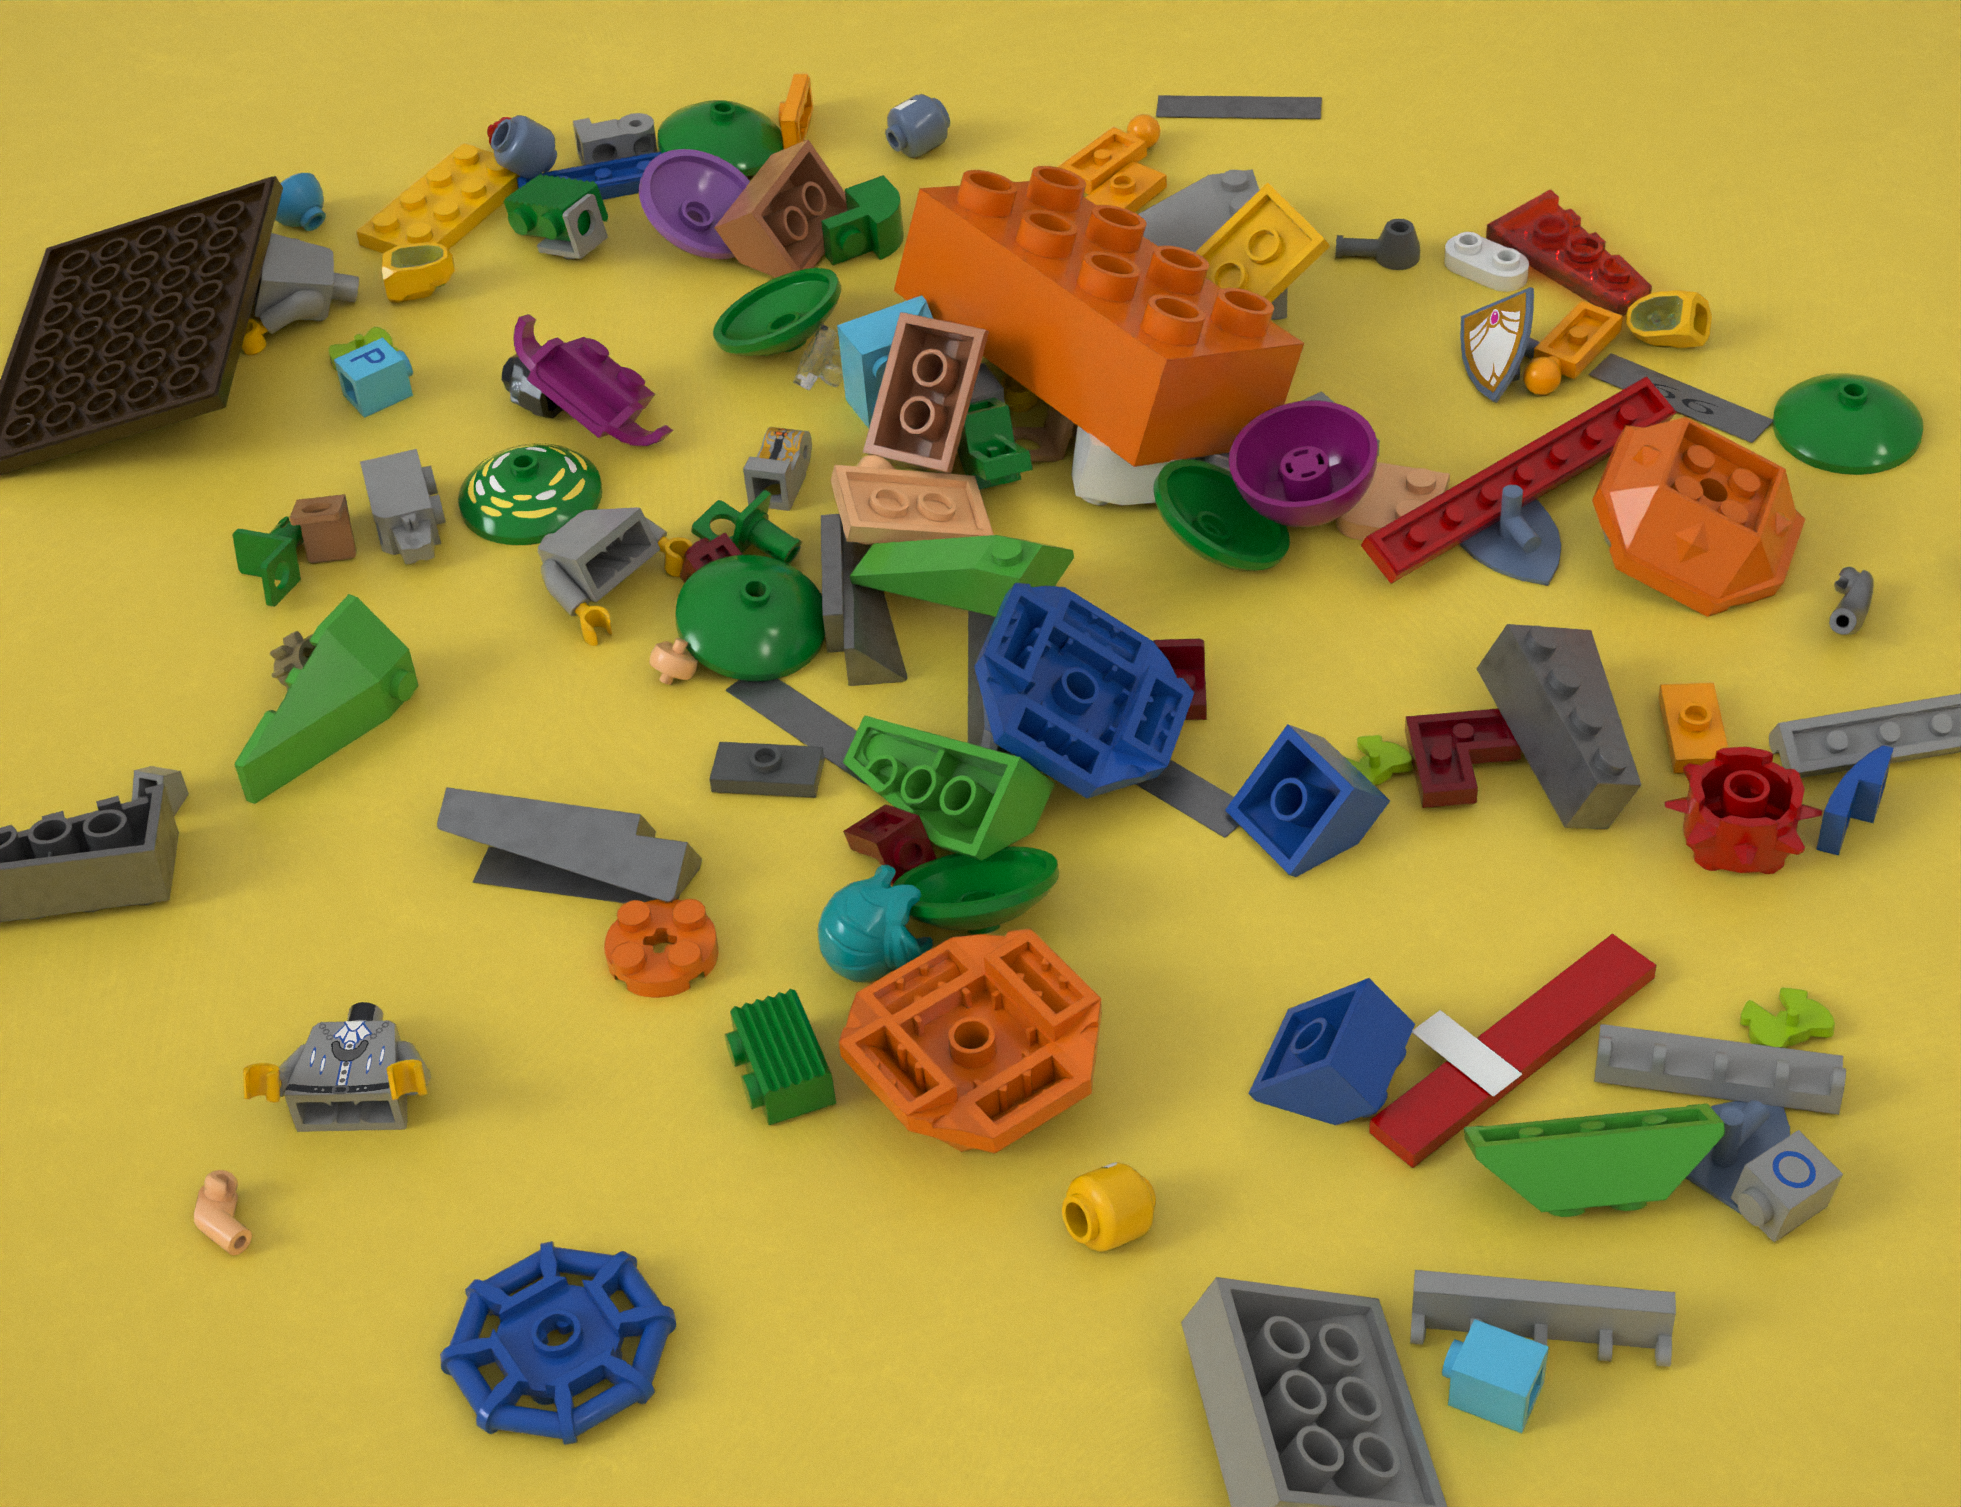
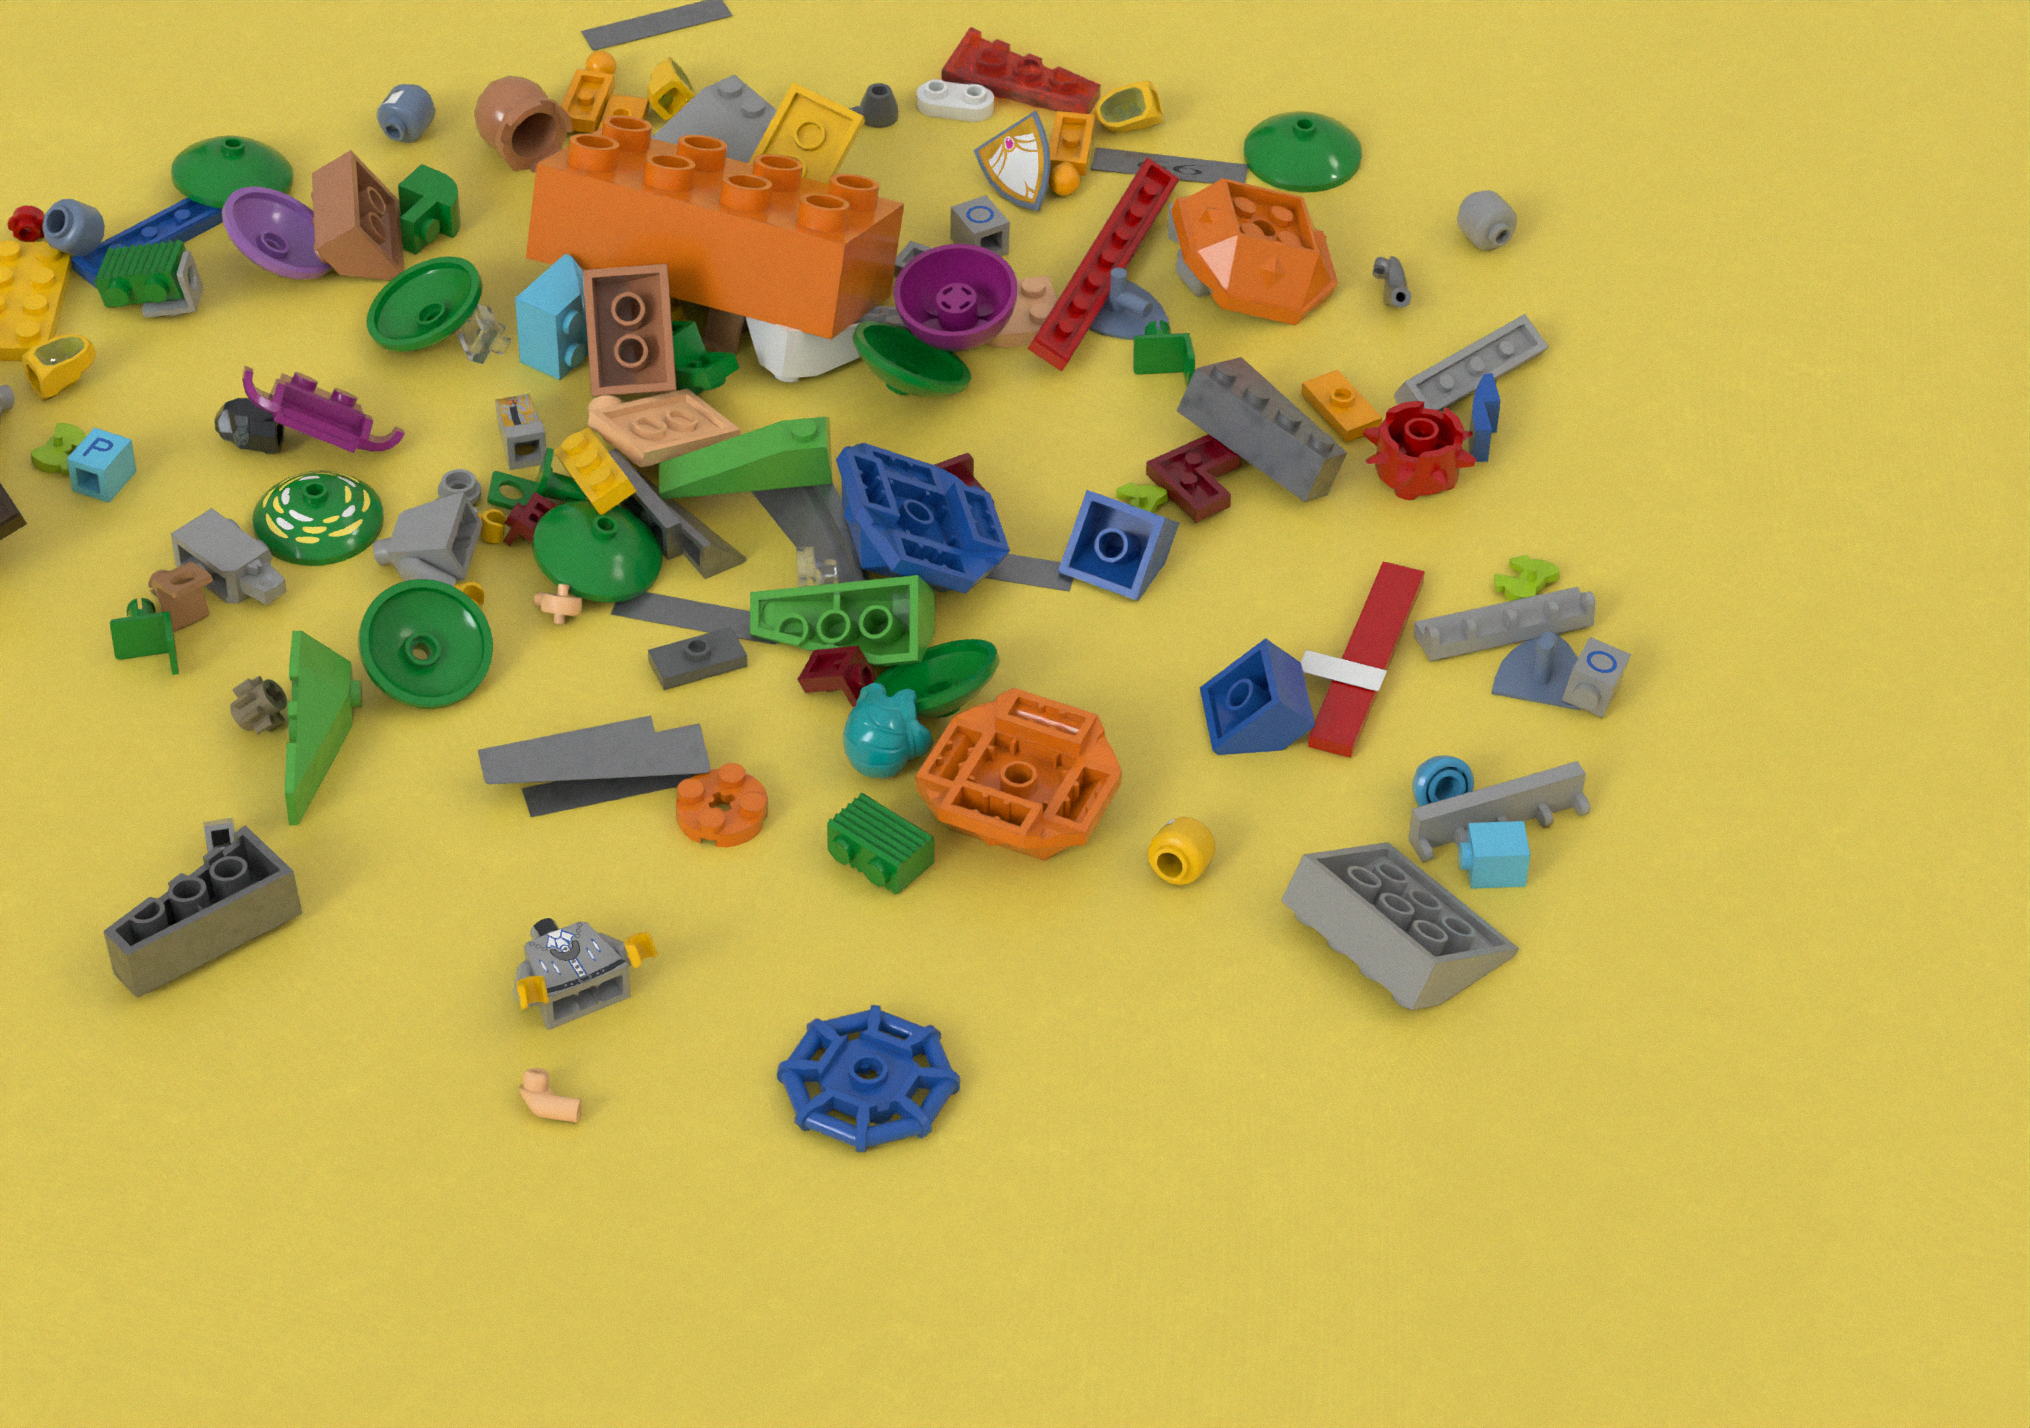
camera: 35 degrees left, 0 degrees up
(475, 632) = (440, 623): none -> green dish
(614, 138) = (134, 200): light grey leg -> none
(676, 508) = (460, 481): none -> light grey plate
(792, 529) = (594, 470): none -> yellow plate
(796, 111) = (285, 132): light orange plate -> none
(944, 716) = (814, 574): none -> clear tile
(1010, 145) = (521, 122): none -> nougat tile
(1190, 164) = (669, 89): none -> yellow rock
(1407, 402) = (980, 224): none -> light grey brick
(1488, 1246) = (1441, 779): none -> dark azure brick
(1516, 597) = (1163, 352): none -> green bracket
(1598, 1158) = (1478, 700): bright green wedge -> none

